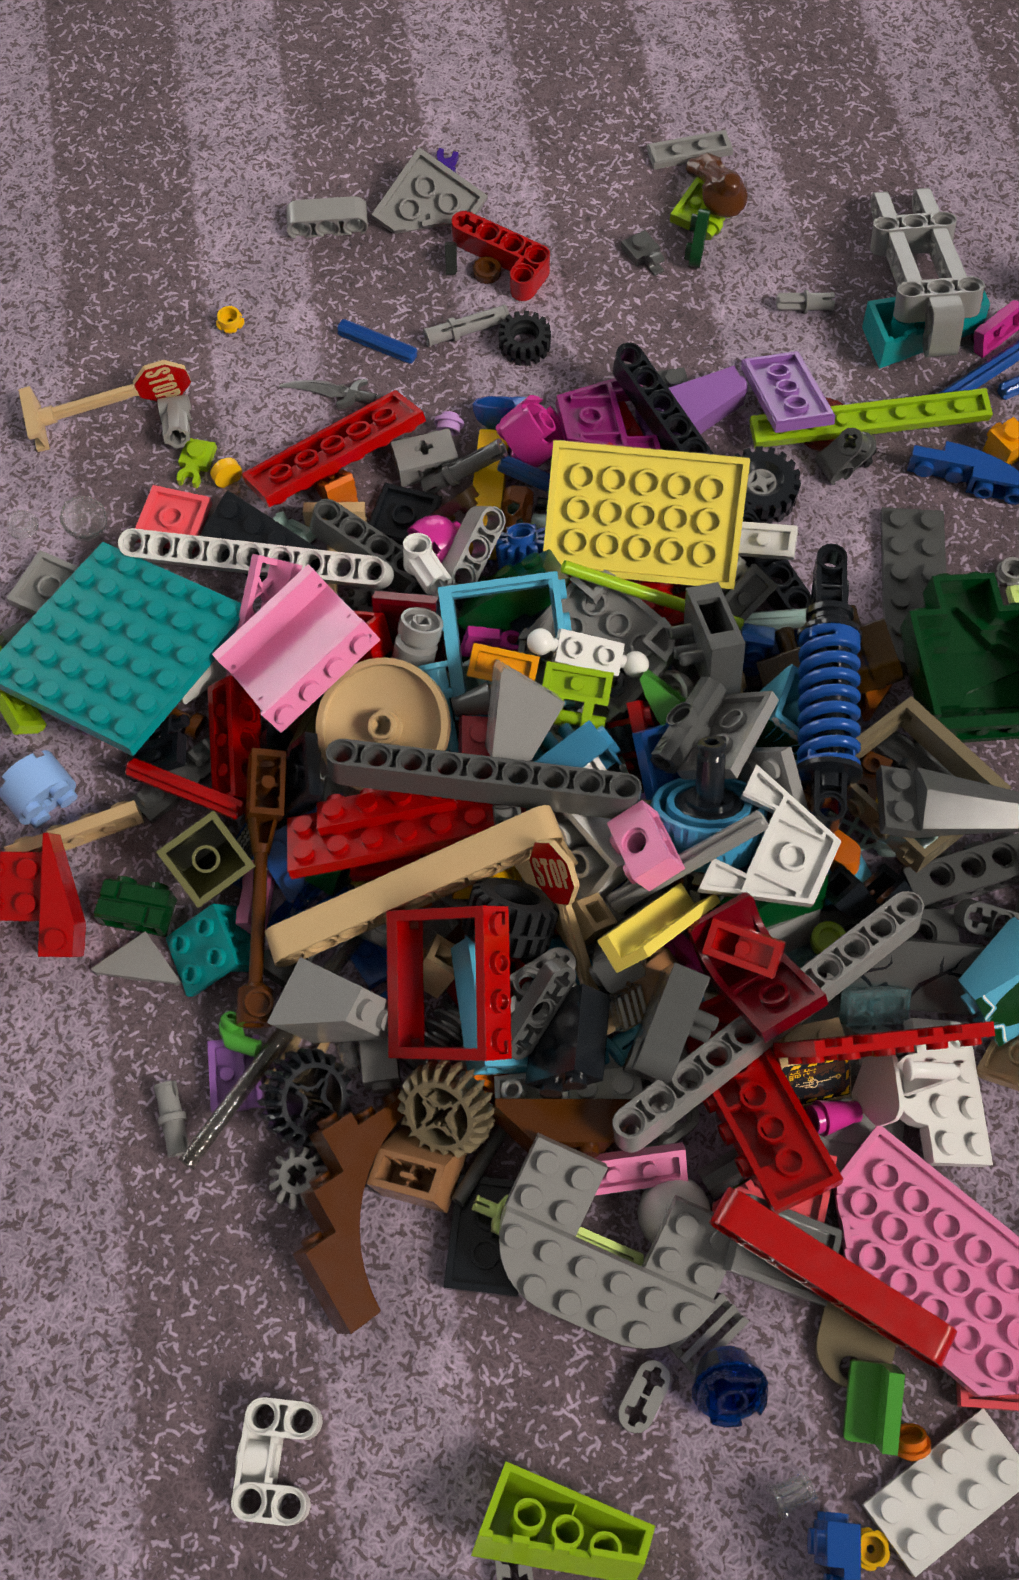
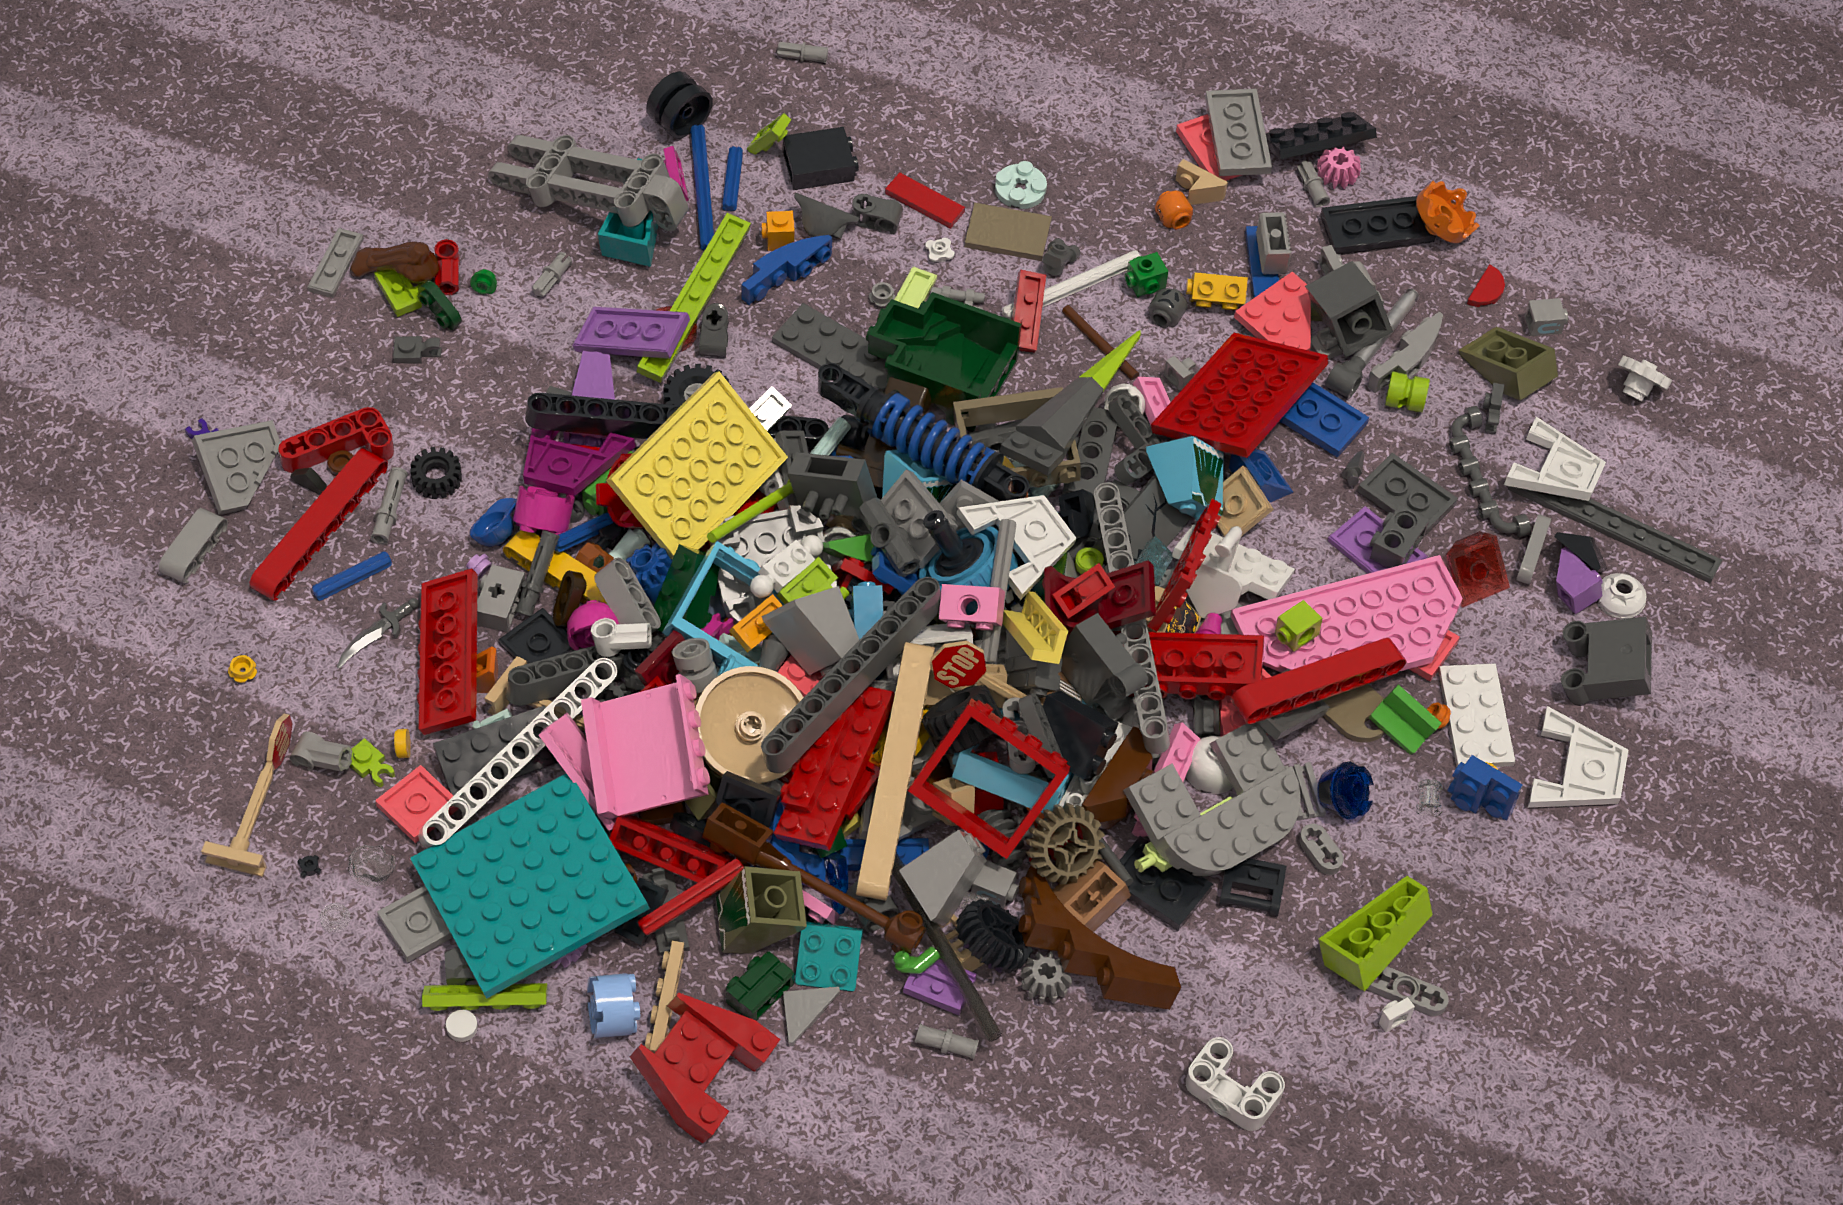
camera: 65 degrees left, 10 degrees down
(65, 478) = (309, 866): none -> black piece
(410, 286) = (317, 523): none -> red beam
(561, 1343) = (1256, 877): none -> black plate
(751, 221) = (449, 262): none -> red piece
(754, 257) = (484, 282): none -> green plate
(900, 1210) = (1298, 626): none -> lime brick

